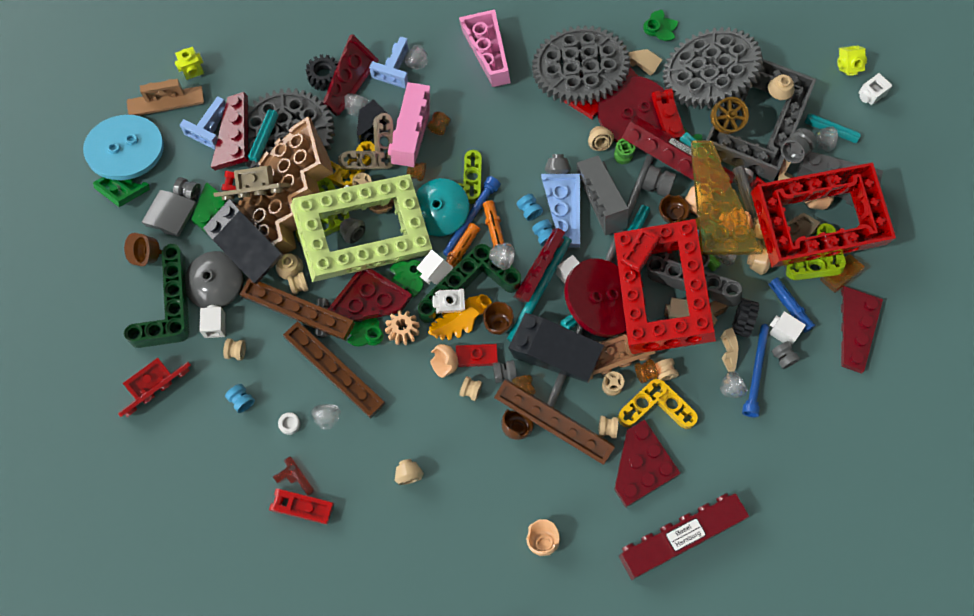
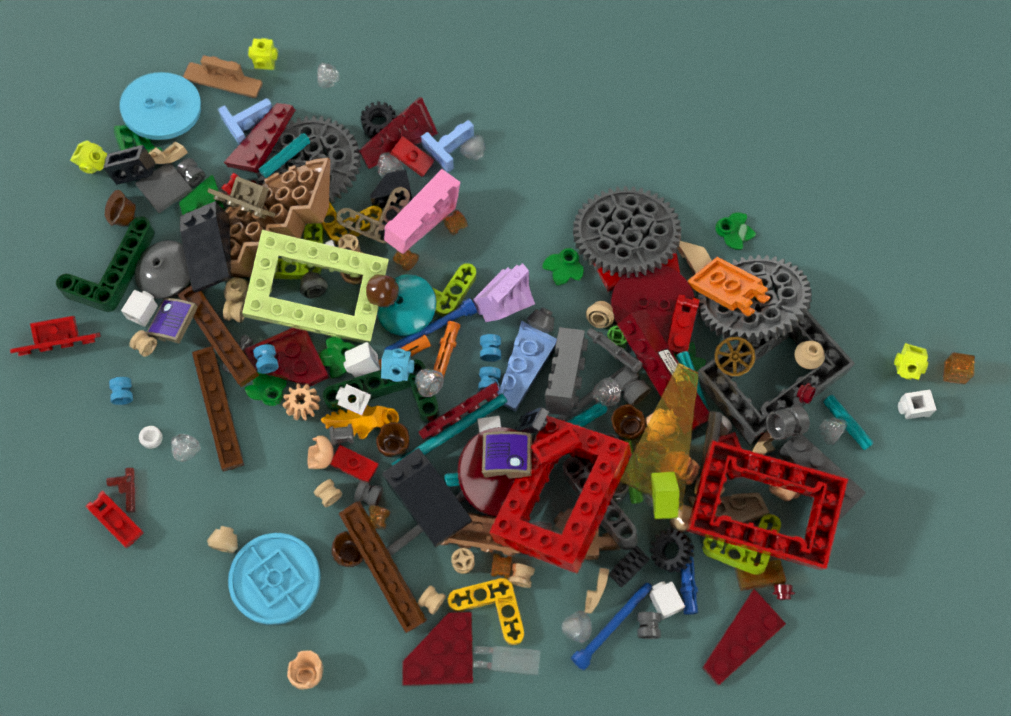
camera: 30 degrees right, 0 degrees up
(86, 218) = (89, 157): none -> neon yellow brick
(129, 207) = (129, 165): none -> black brick
(158, 183) = (169, 155): none -> tan slope
(248, 317) = (172, 320): none -> slope
(256, 55) = (327, 75): none -> clear cone
(353, 306) = (265, 358): none -> dark azure wheel
(370, 87) = (412, 156): none -> red plate
(420, 201) = (382, 290): none -> reddish brown hair
(453, 335) = (341, 434): none -> dark grey bush
(468, 255) = (396, 365): none -> medium azure brick
(469, 480) = (274, 578): none -> medium azure plate
(485, 40) = (548, 167): bright pink wedge -> none
(518, 157) = (505, 294): none -> lavender slope
(547, 118) = (563, 269): none -> green plate
(605, 243) = (533, 421): none -> black hinge
(605, 277) = (507, 454): none -> slope
(632, 158) = (615, 350): none -> dark grey piece
(645, 194) = (607, 392): none -> clear cone
(689, 66) = (729, 286): none -> orange tile
(697, 439) = (509, 660): none -> clear hinge
(745, 245) = (665, 495): none -> lime slope
(759, 280) = (659, 550): none -> black tyre
(797, 118) = (806, 393): none -> dark red plate
(866, 276) = (783, 592): none -> dark red plate
(887, 48) = (959, 368): none -> clear orange brick

